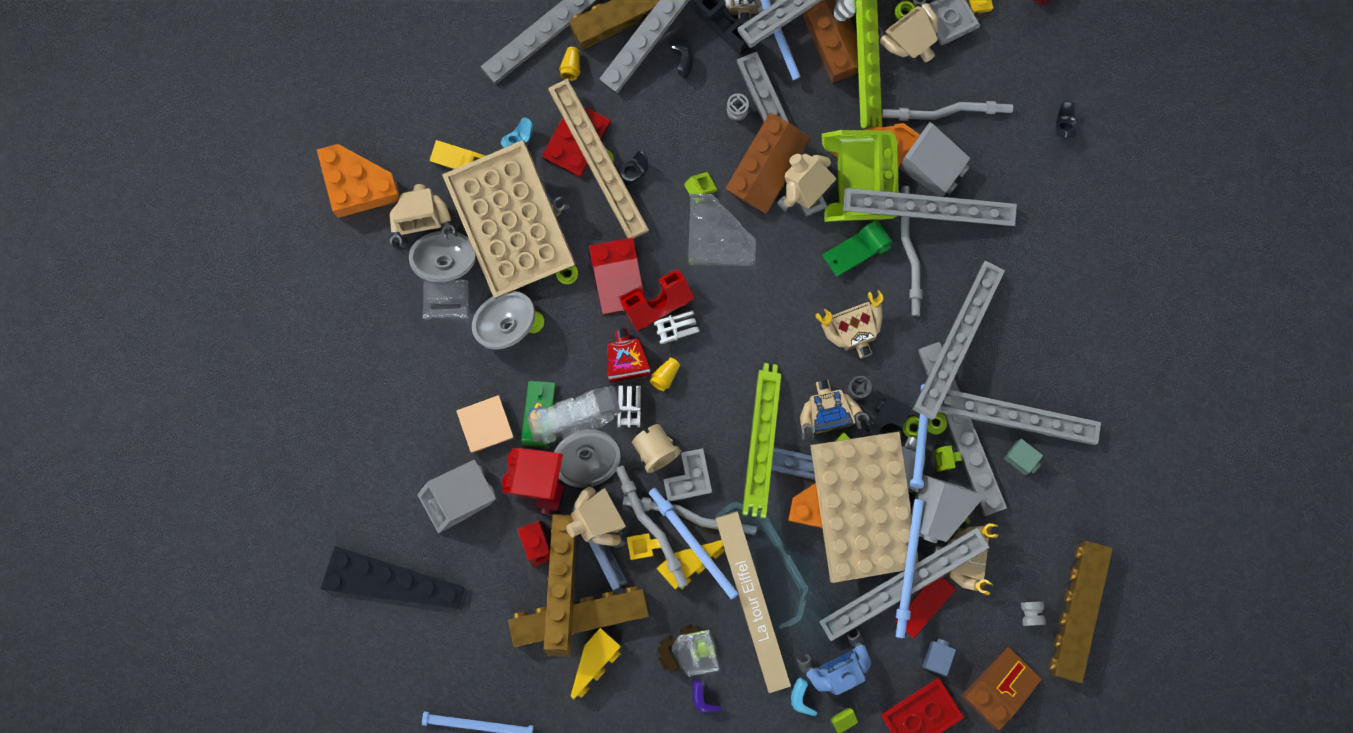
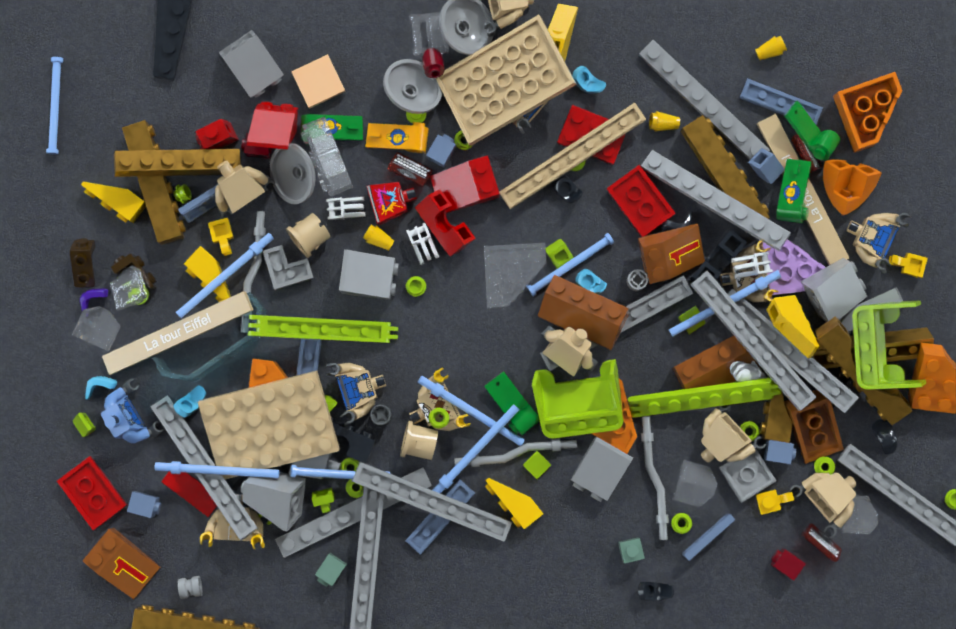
camera: 90 degrees right, 5 degrees up
(480, 296) = (433, 63): none -> dark red brick
(556, 343) = (403, 137): none -> light orange door
(576, 297) = (441, 150): none -> sand blue brick
(593, 334) = (410, 169): none -> slope
(594, 586) = (182, 193): none -> lime plate
(653, 95) = (640, 201): none -> red plate
(661, 705) = (81, 262): none -> dark brown bracket
(673, 564) = (203, 260): light grey bar -> none
(691, 134) = (571, 264): none -> light blue bar
(706, 387) = (368, 275): none -> light grey slope
(712, 69) = (671, 252): none -> dark orange slope
(722, 339) = (416, 286): none -> lime plate
(733, 156) = (590, 281): none -> medium azure hair
(736, 695) = (97, 327): none -> clear slope
(778, 59) = (690, 313): none -> lime slope
(828, 595) = (189, 403): none -> medium azure hair
(841, 319) = (438, 390): none -> light blue bar
(874, 318) = (434, 412): none -> lime plate
(892, 349) = (419, 441): none -> tan piece
(924, 231) = (536, 464): none -> lime slope
(929, 207) = (555, 466): light grey plate -> none
(936, 325) = (447, 480): none -> light blue bar
(956, 71) = (695, 484): none -> clear slope
(969, 248) = (520, 505): none -> yellow slope
(981, 345) = (434, 524): none -> sand blue tile
(996, 82) = (688, 523): none -> lime plate
(1012, 62) = (708, 536): none -> sand blue tile
(1022, 140) = (631, 550): none -> sand green brick

